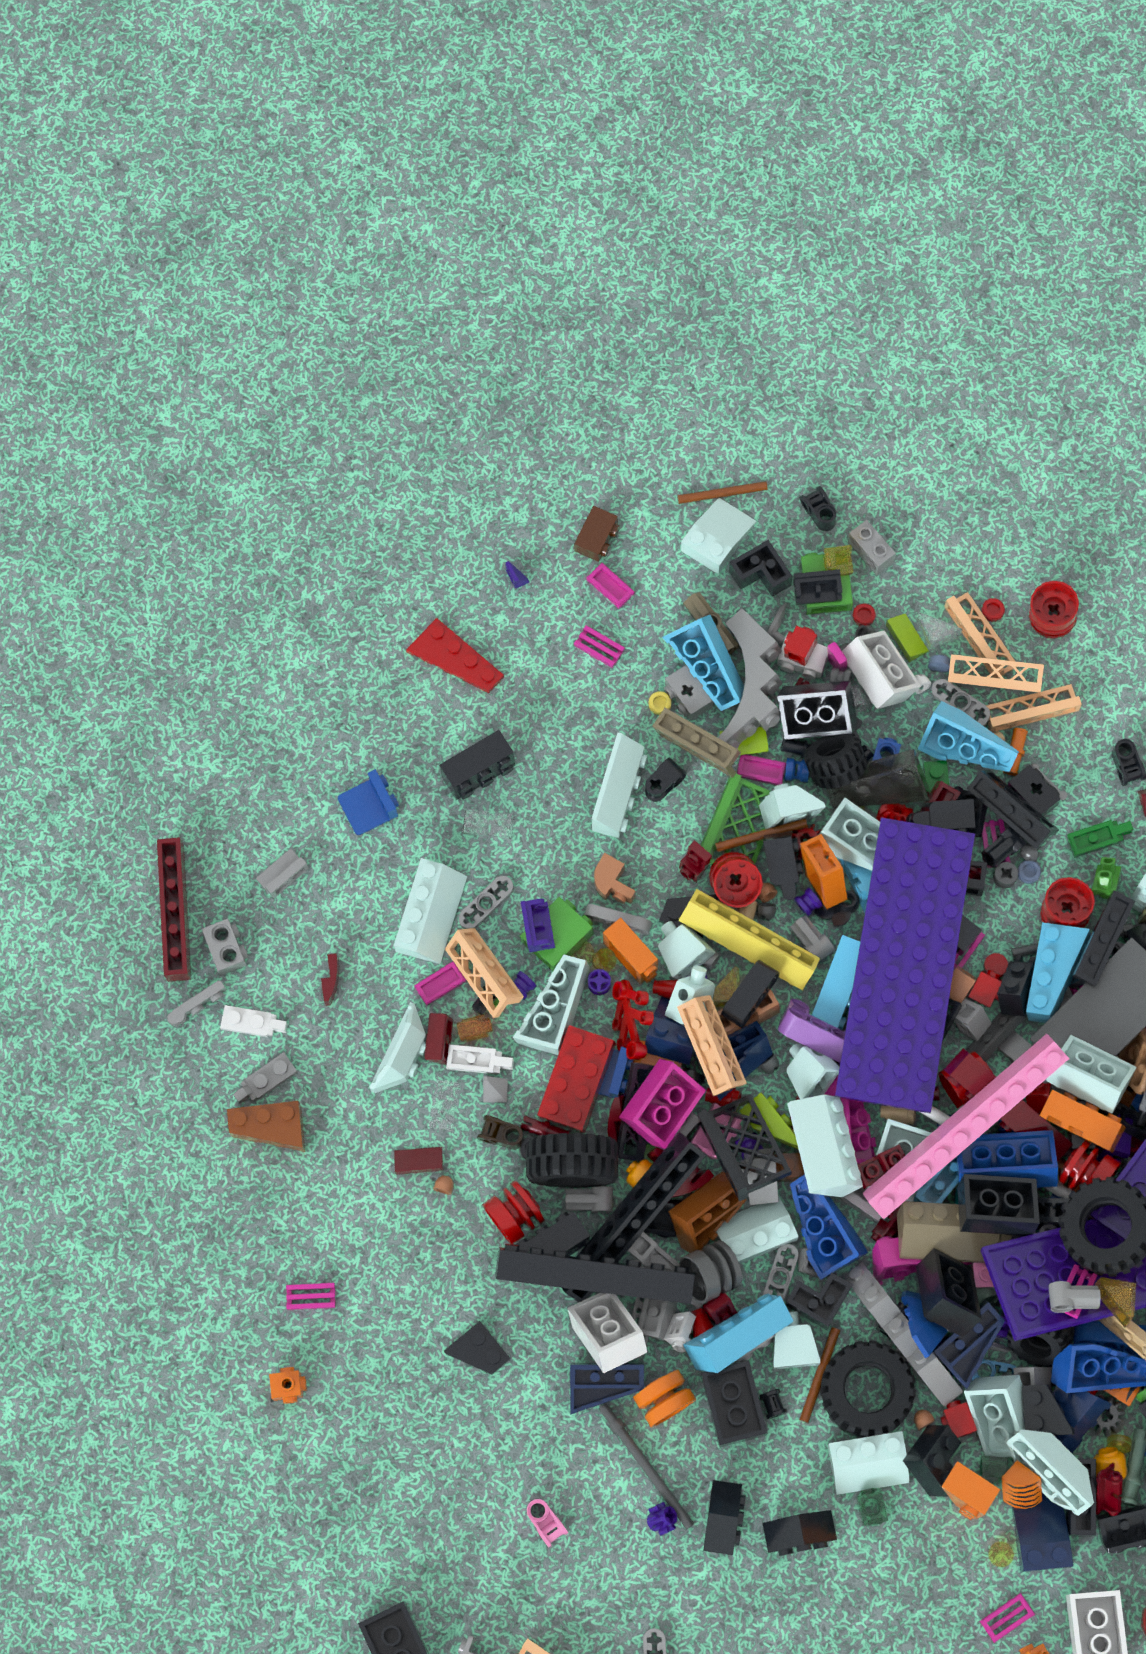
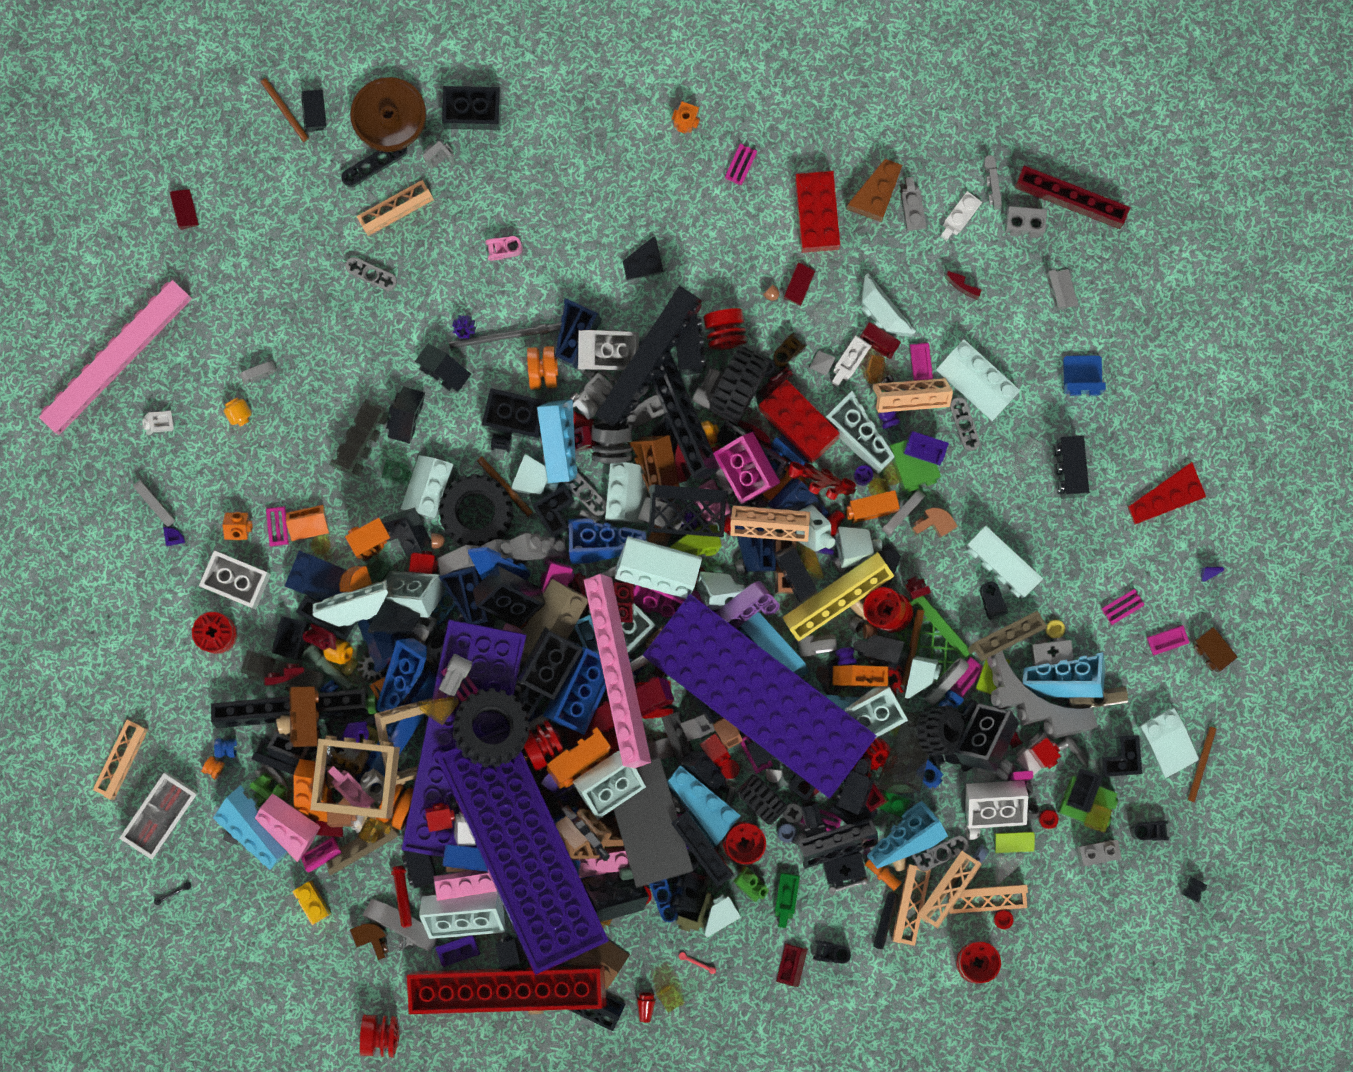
camera: 115 degrees right, 10 degrees up
(325, 1180) = (817, 211): none -> red brick
(767, 780) = (946, 681): none -> light grey beam
(856, 439) = (1194, 889): none -> black wheel
(857, 1571) = (359, 439): none -> clear smoke wedge
(976, 915) = (773, 775): none -> white hinge
(984, 1583) = (307, 523): none -> orange brick
(1012, 910) = (761, 799): none -> black tyre
(1062, 726) = (885, 920): none -> black axle

